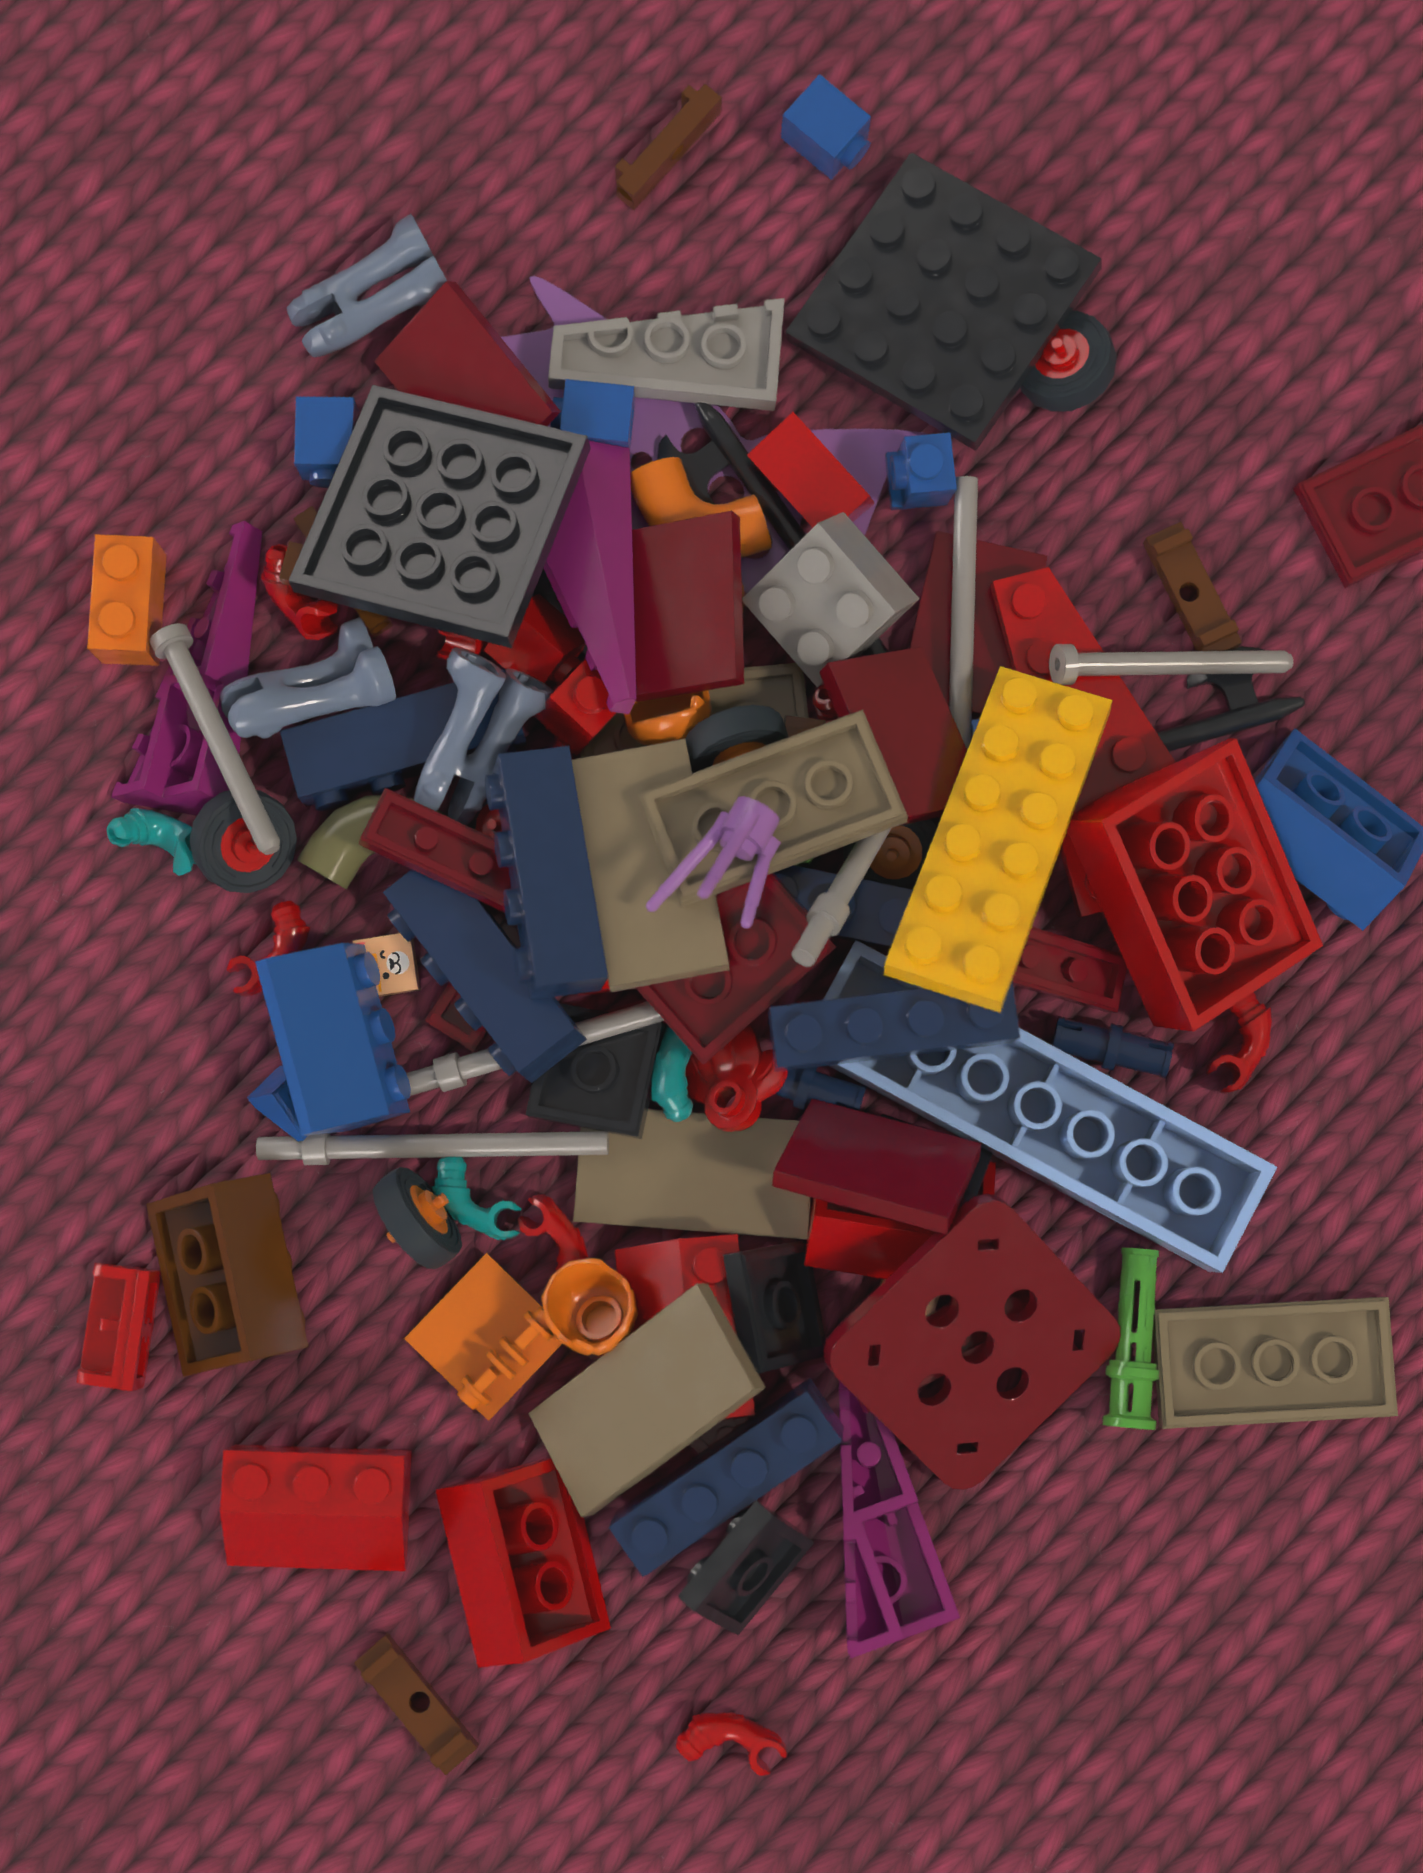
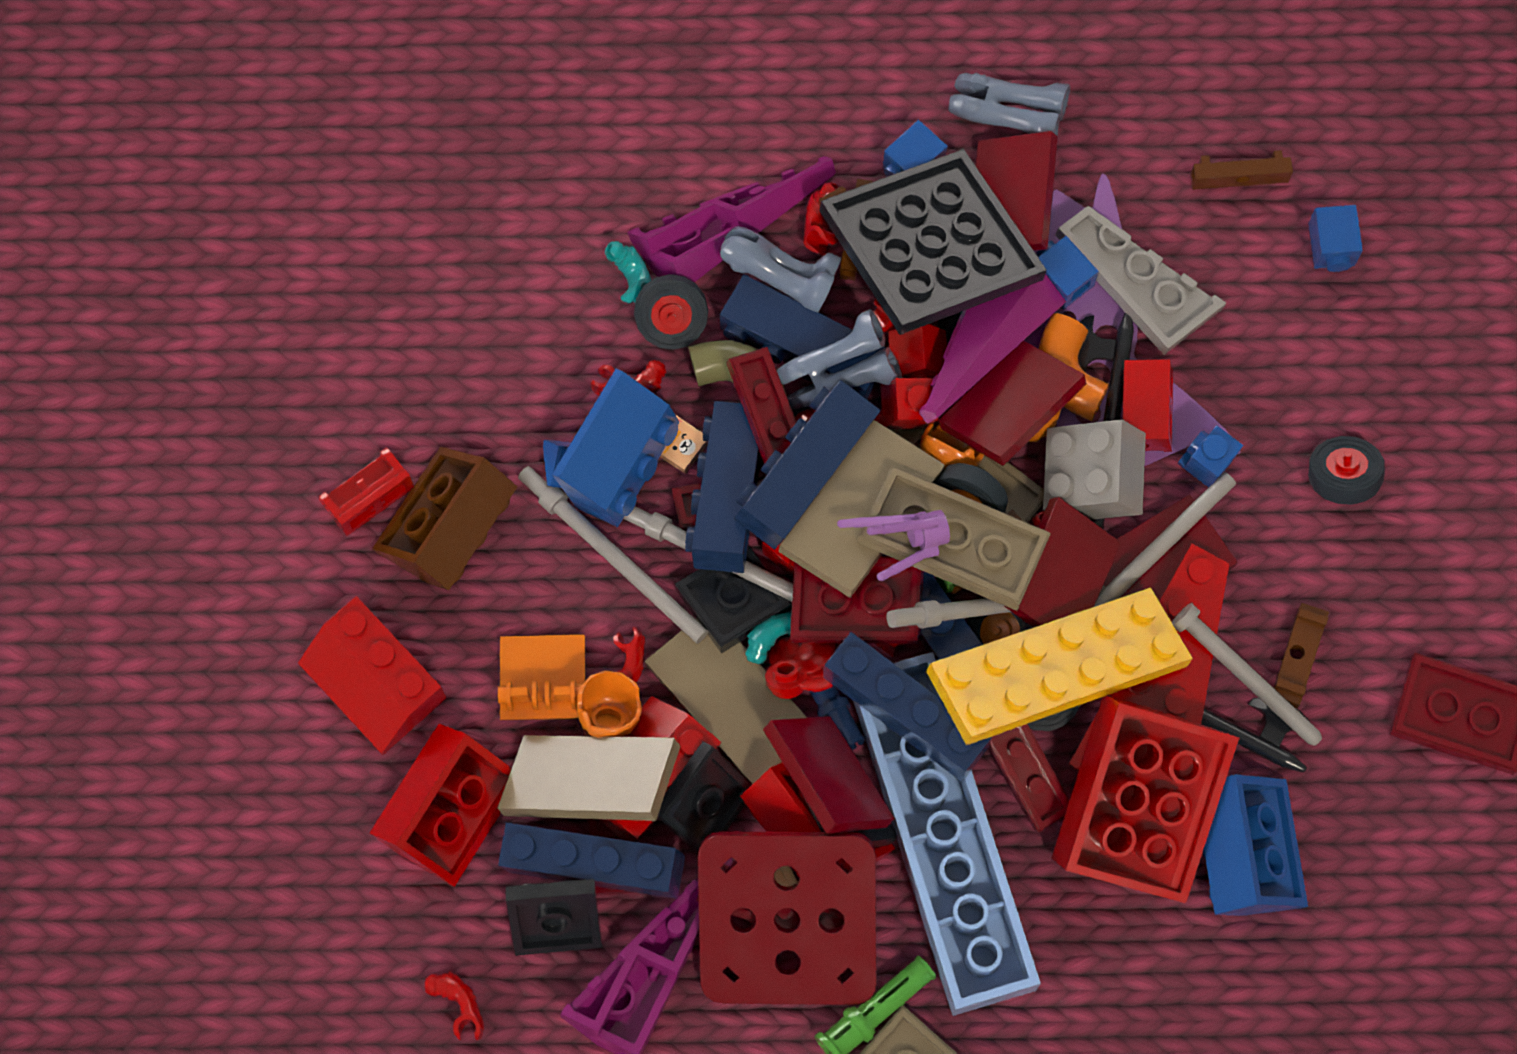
camera: 50 degrees right, 10 degrees down
(126, 599) = (732, 142): orange brick -> none
(173, 644) = (733, 183): light grey bar -> none
(417, 1218) = (567, 579): black wheel -> none
(433, 1727) = (316, 845): reddish brown piece -> none
(462, 1209) = (597, 590): teal piece -> none
(943, 300) = (1311, 380): black plate -> none
(1113, 1047) = (1017, 847): dark blue pin -> none
(1255, 1030) = (1105, 912): red piece -> none

